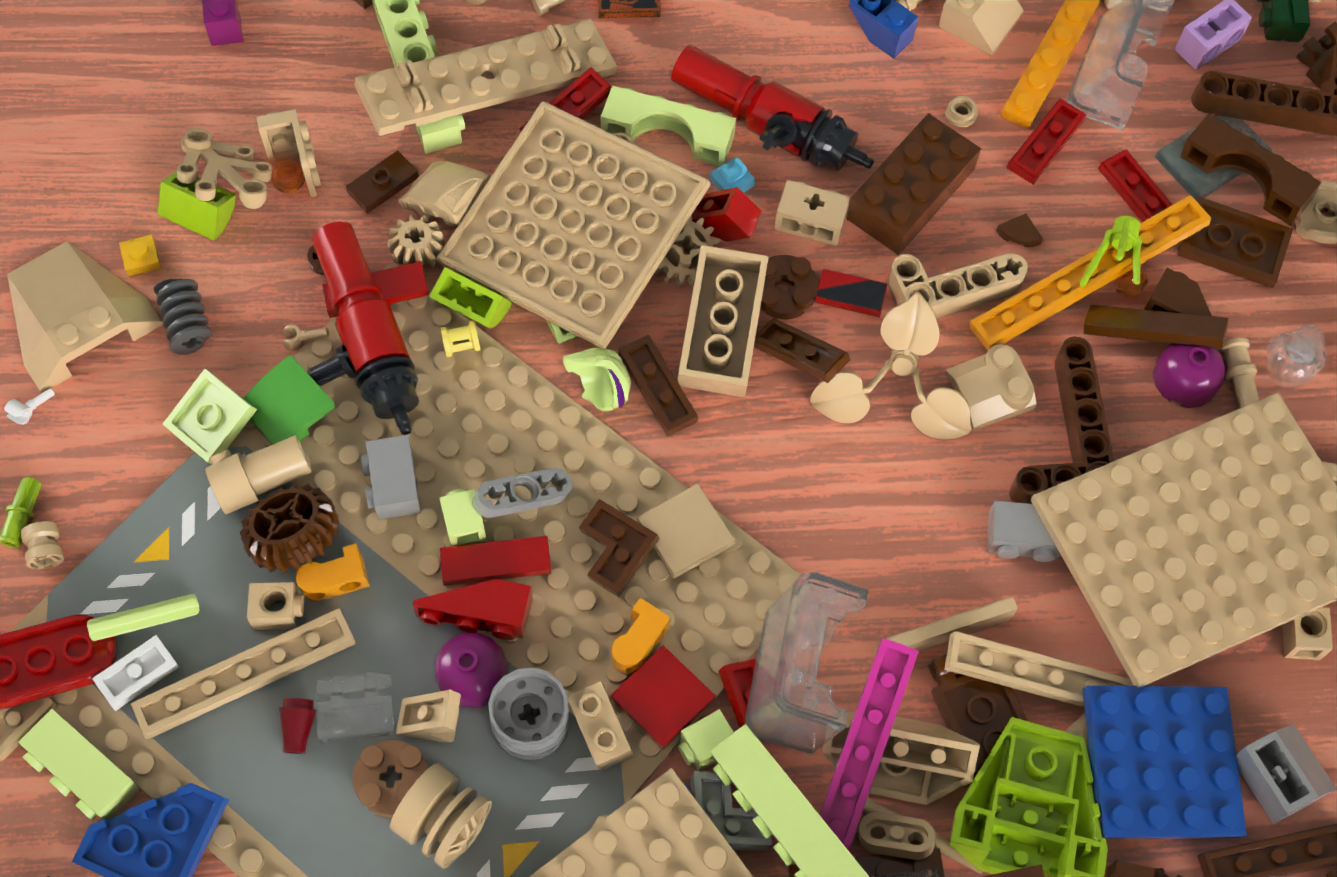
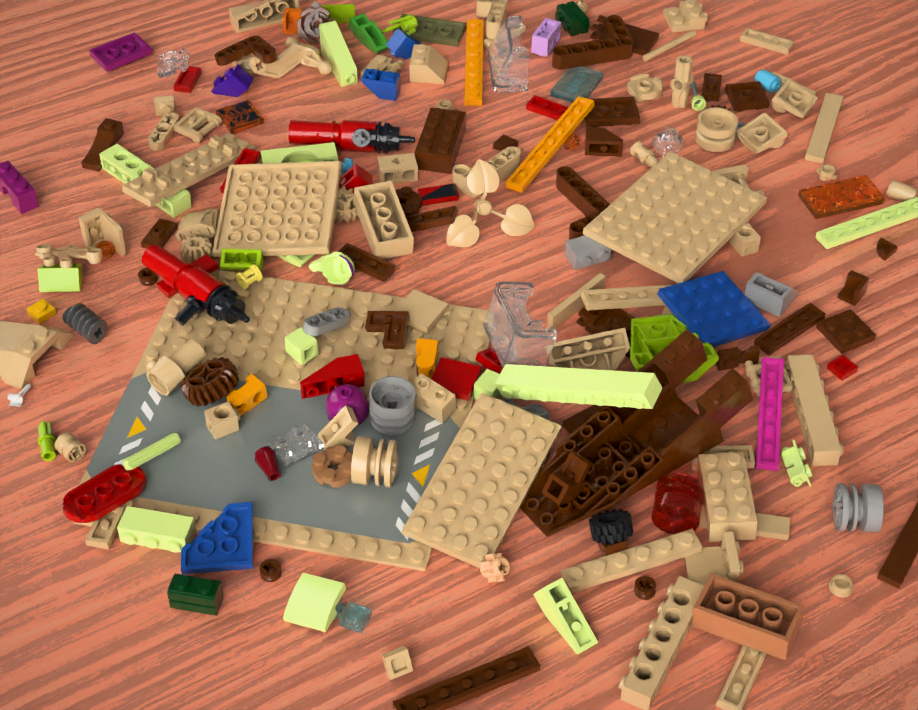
camera: 25 degrees left, 20 degrees down
(135, 673) = (162, 477): white plate -> none
(209, 416) = (130, 357): yellowish green plate -> none
(242, 674) = (223, 455): tan plate -> none
(287, 402) = (169, 334): bright green slope -> none
(296, 343) = (153, 311): tan hand -> none
(392, 477) = (251, 343): light grey brick -> none
(495, 560) = (319, 360): red tile -> none
(867, 738) = (568, 336): dark pink plate -> none
(994, 386) = (538, 201): tan slope -> none
(1046, 141) = (493, 106): red tile -> none
(1123, 237) = (558, 120): lime plant -> none
(1156, 326) = (596, 150): reddish brown tile -> none
(1189, 374) = (623, 165): magenta cylinder -> none
(1284, 186) = (581, 75): reddish brown arch -> none

